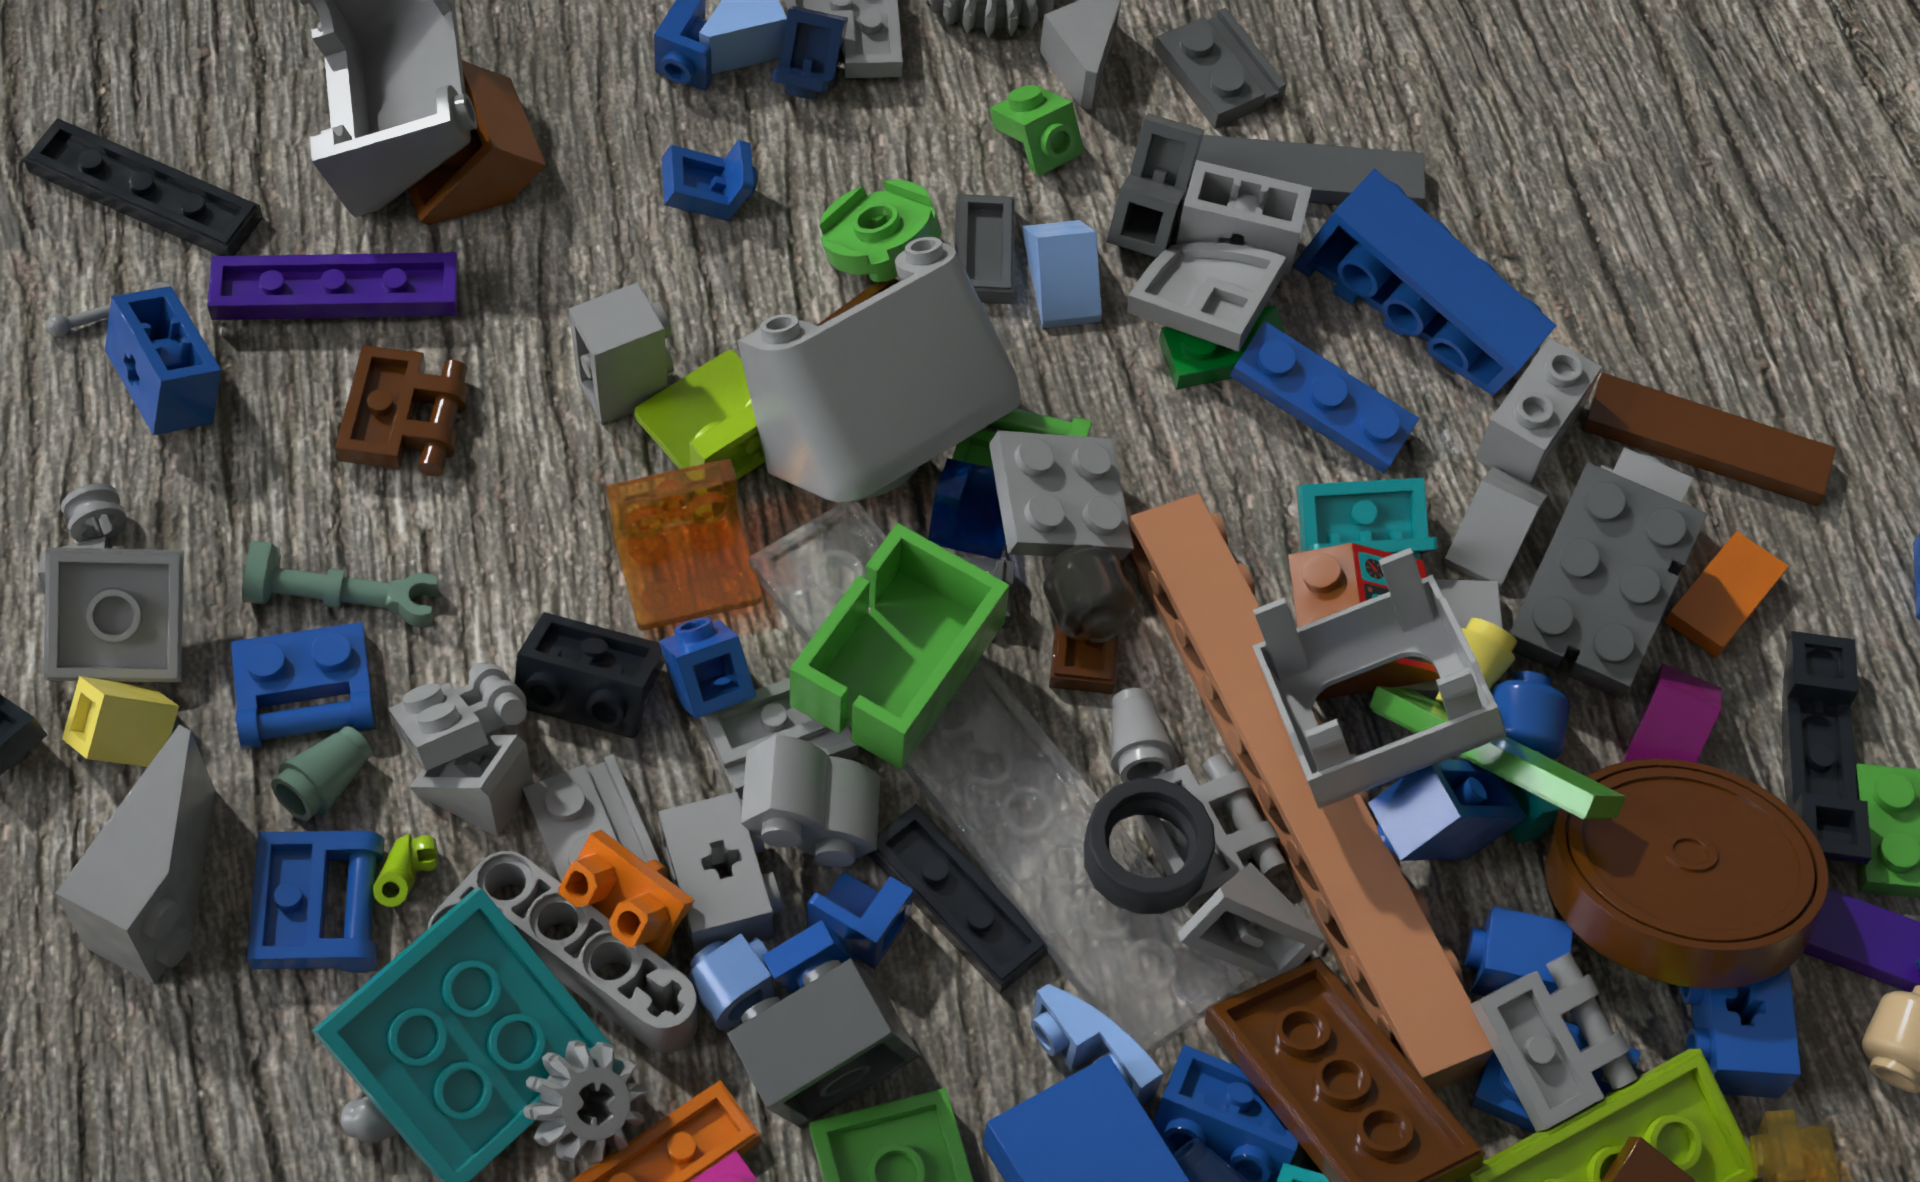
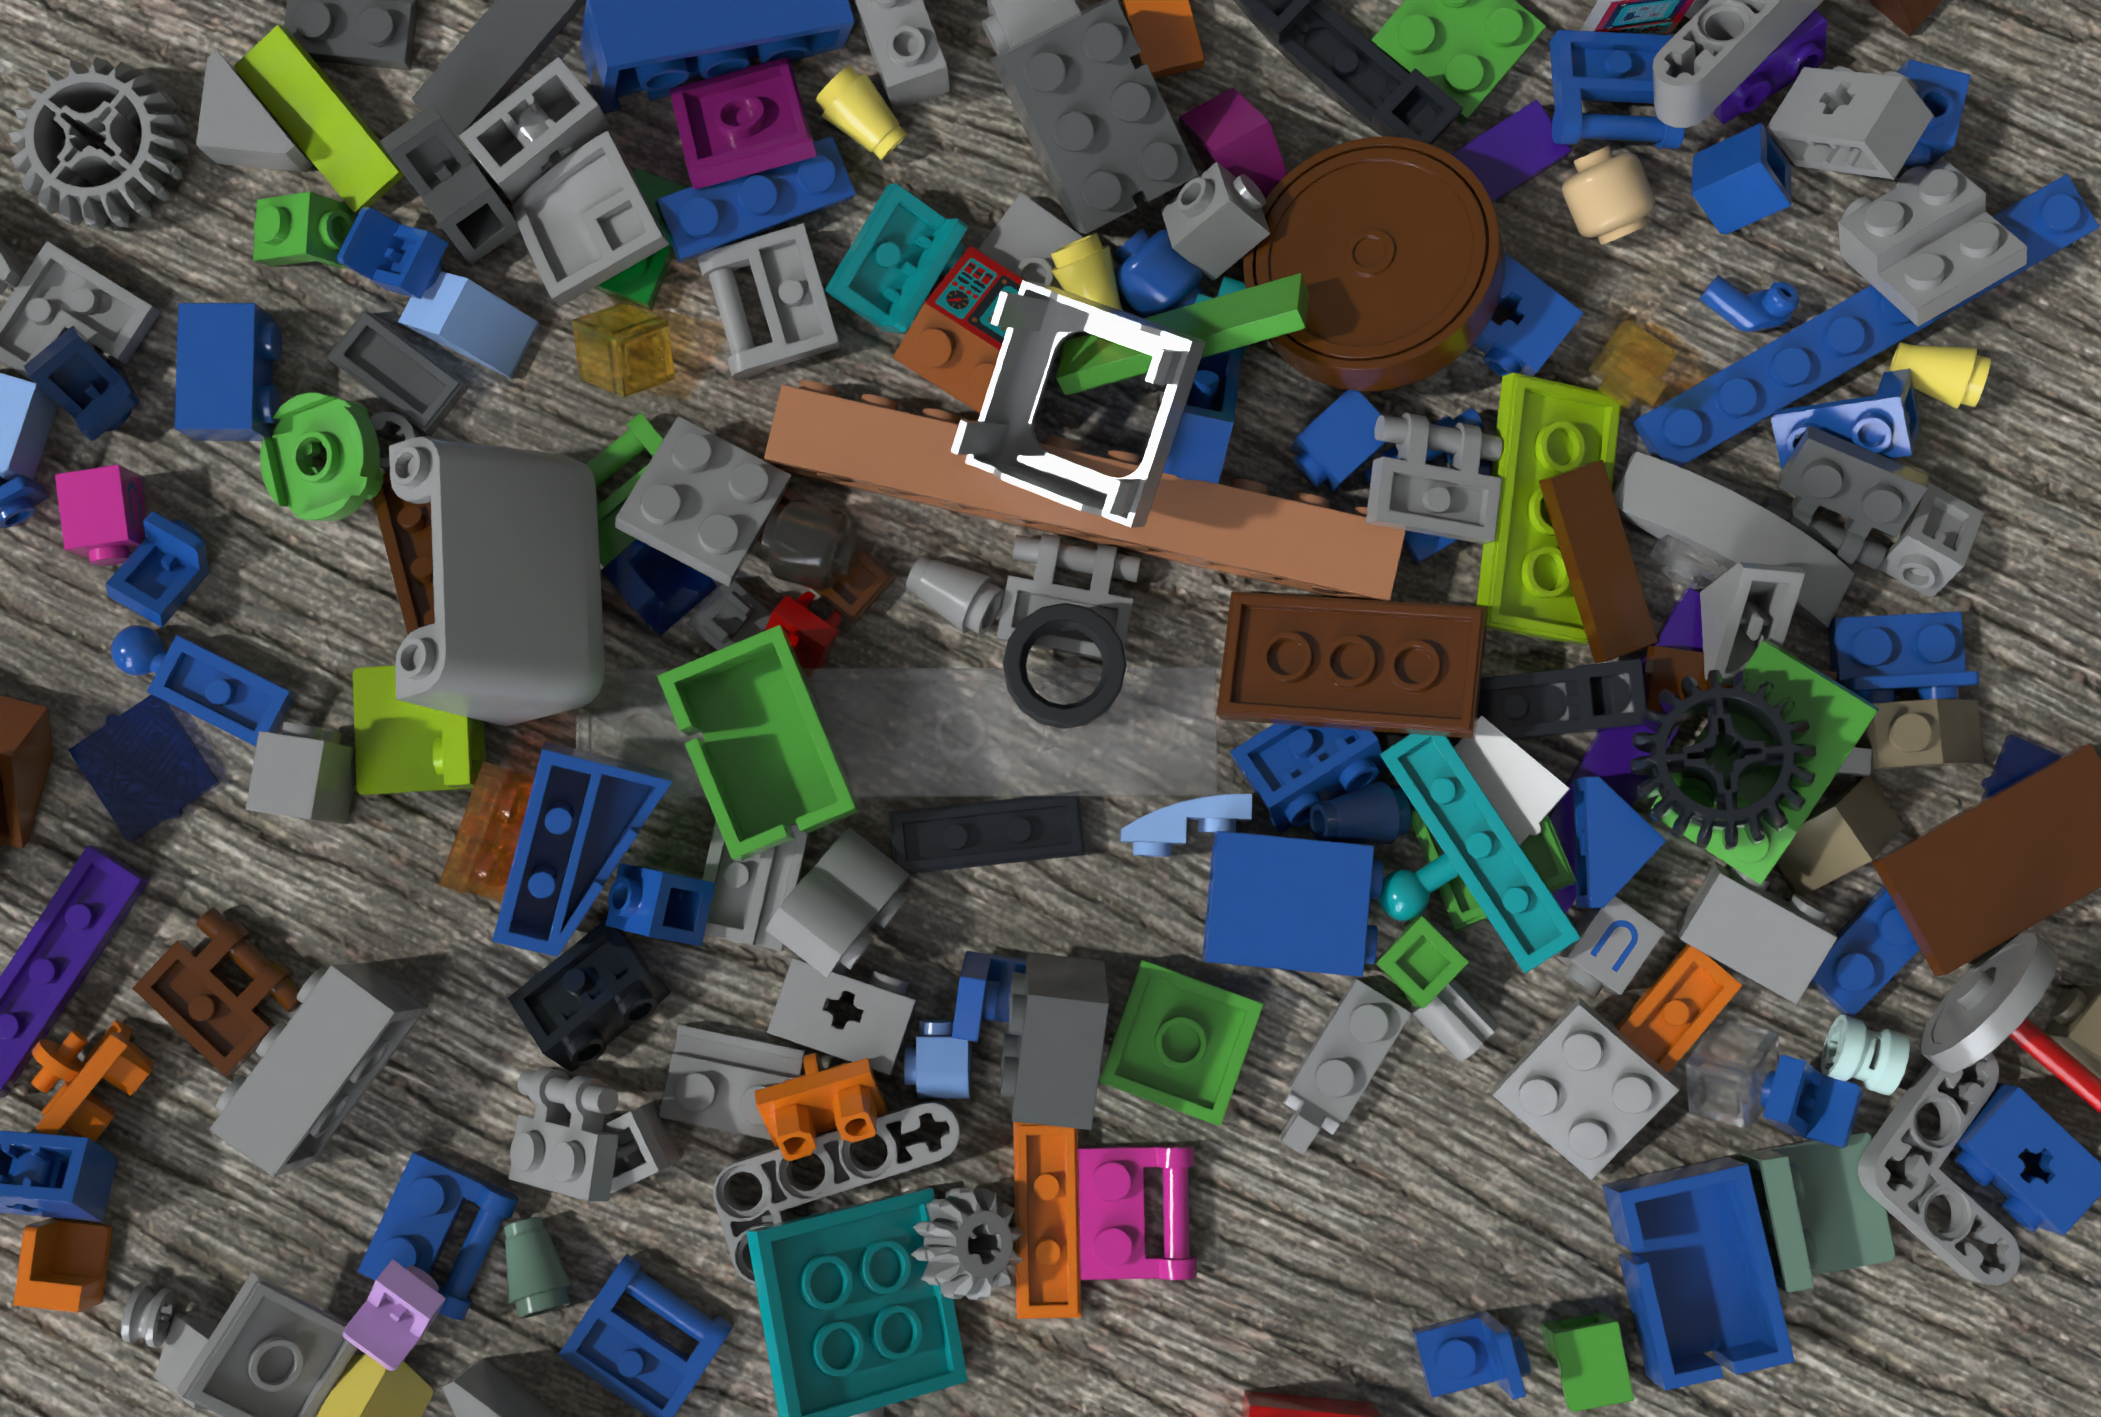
camera: 50 degrees left, 25 degrees up
(97, 429) = (63, 1265): none -> orange panel
(218, 682) = (395, 1314): none -> lavender bracket
(265, 577) = (313, 1208): sand green piece -> none
(292, 363) = (73, 1106): none -> orange hips
(390, 499) = (315, 1067): none -> light grey brick
(401, 866) = (666, 1259): lime arm -> none
(544, 263) = (144, 767): none -> clear blue piece
(642, 246) = (203, 683): none -> blue plate
(710, 560) = (570, 841): none -> blue wedge
(722, 114) = (101, 513): none -> dark pink brick
(862, 915) = (951, 922): blue panel -> none
(891, 133) = (226, 371): none -> blue brick
(1017, 641) = (808, 633): none -> red tile
(1070, 184) = (392, 254): none -> blue bracket
(1128, 86) = (319, 119): none -> lime tile
(1130, 380) = (623, 349): none -> clear yellow panel
(1252, 926) = (1176, 633): light grey slope -> none
(1270, 468) = (788, 293): none -> light grey plate
(1373, 349) = (742, 123): none -> magenta tile
(1454, 428) = (860, 112): none -> light yellow cone
(1495, 527) = (969, 147): light grey slope -> none
(1608, 726) = (1216, 220): none -> light grey brick

